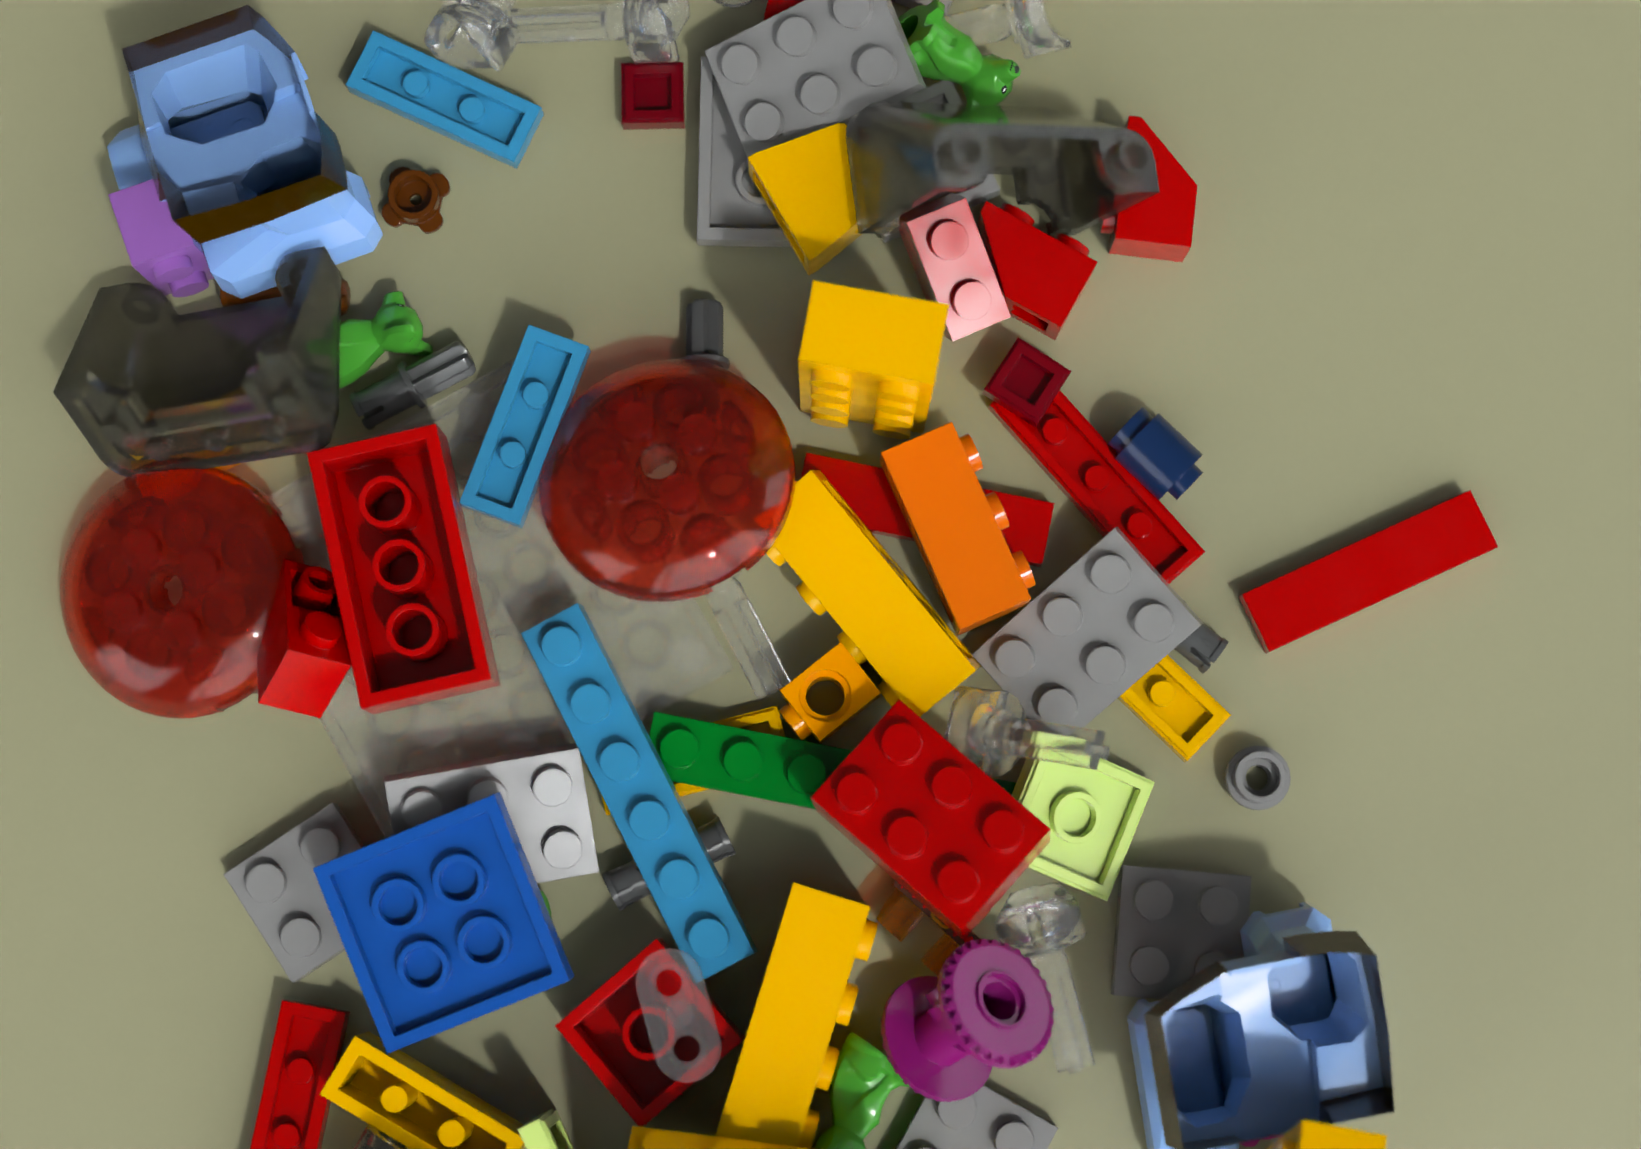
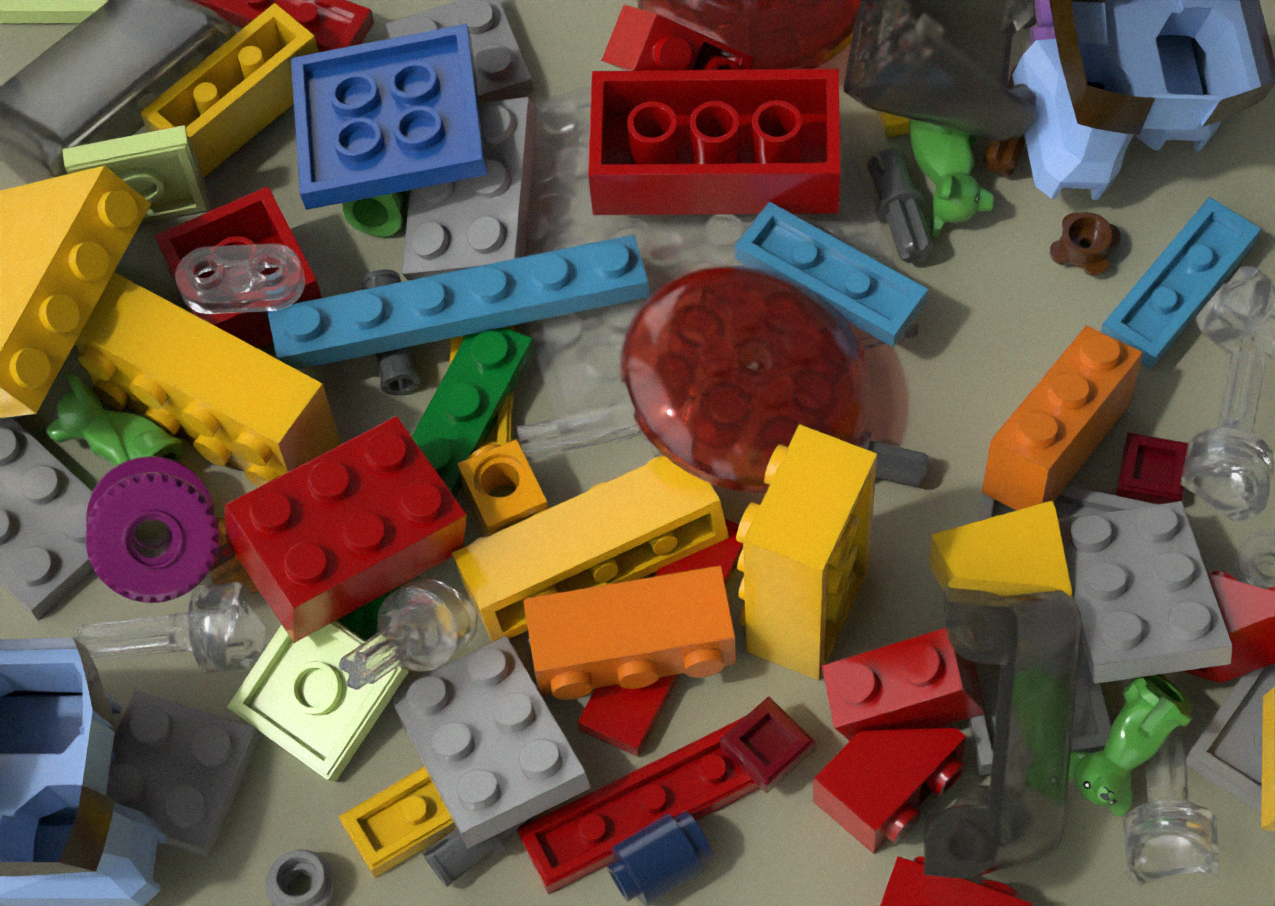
camera: 110 degrees right, 20 degrees down
(643, 173) = (1061, 421): none -> orange brick

